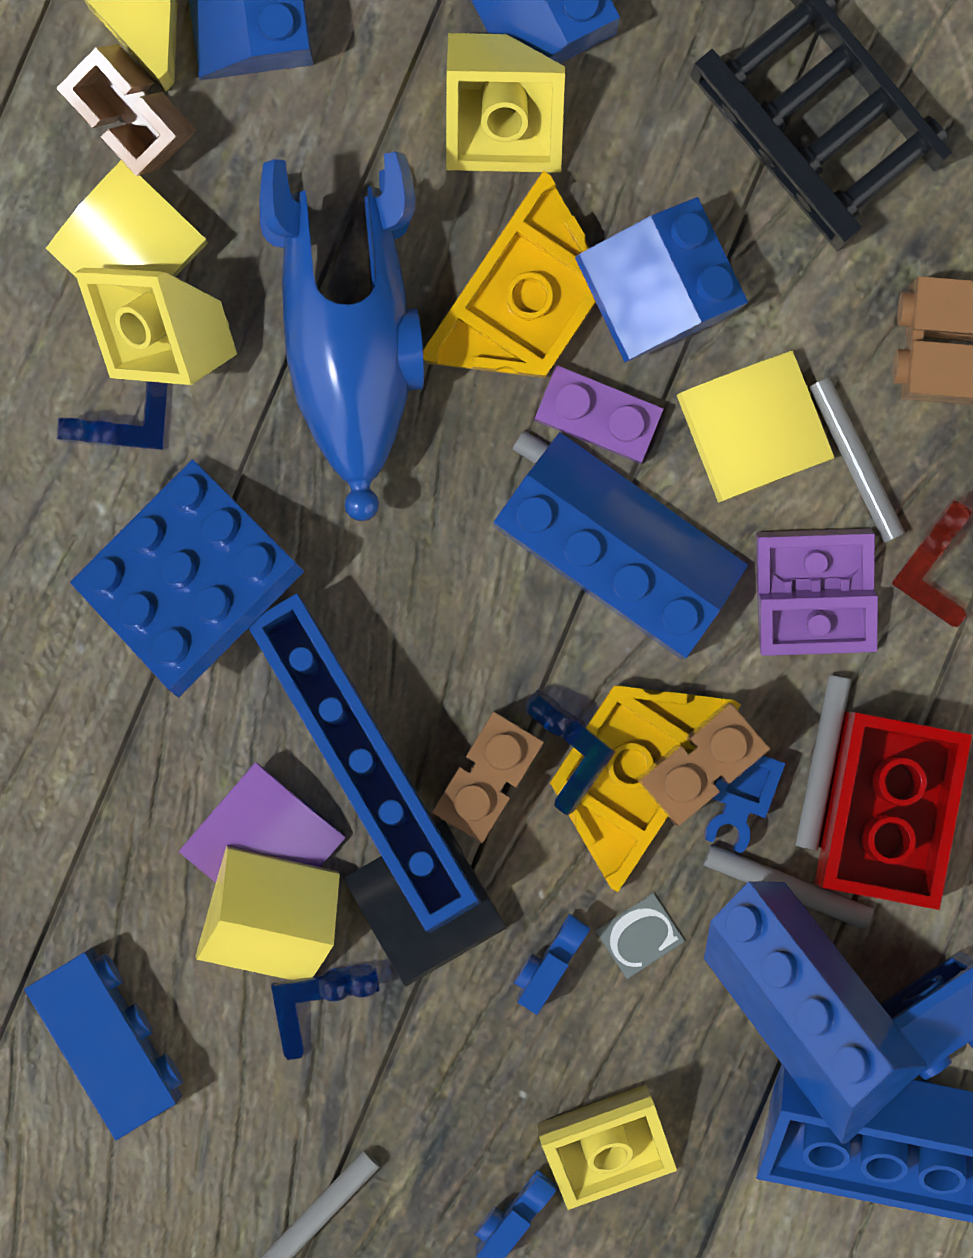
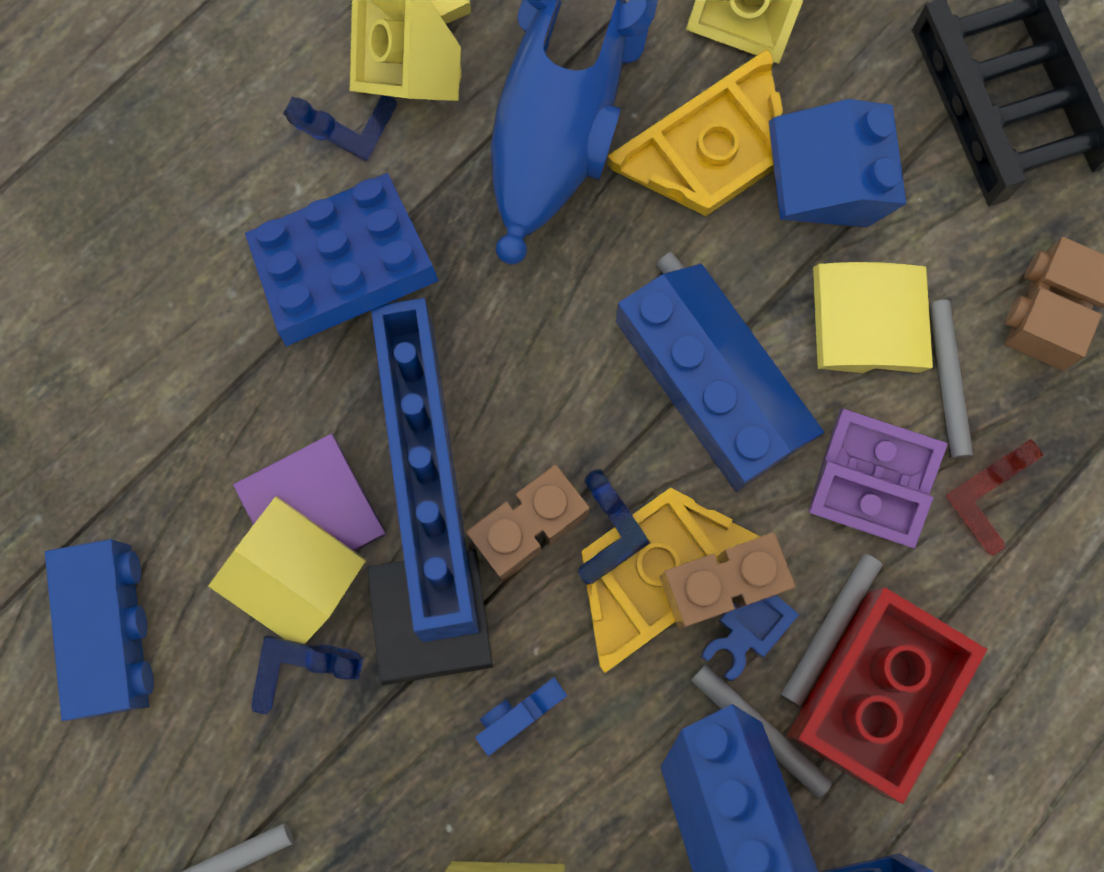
camera: 25 degrees right, 10 degrees down
(598, 414) = (740, 261): medium lavender plate -> none
(640, 936) = (610, 723): light grey sticker -> none

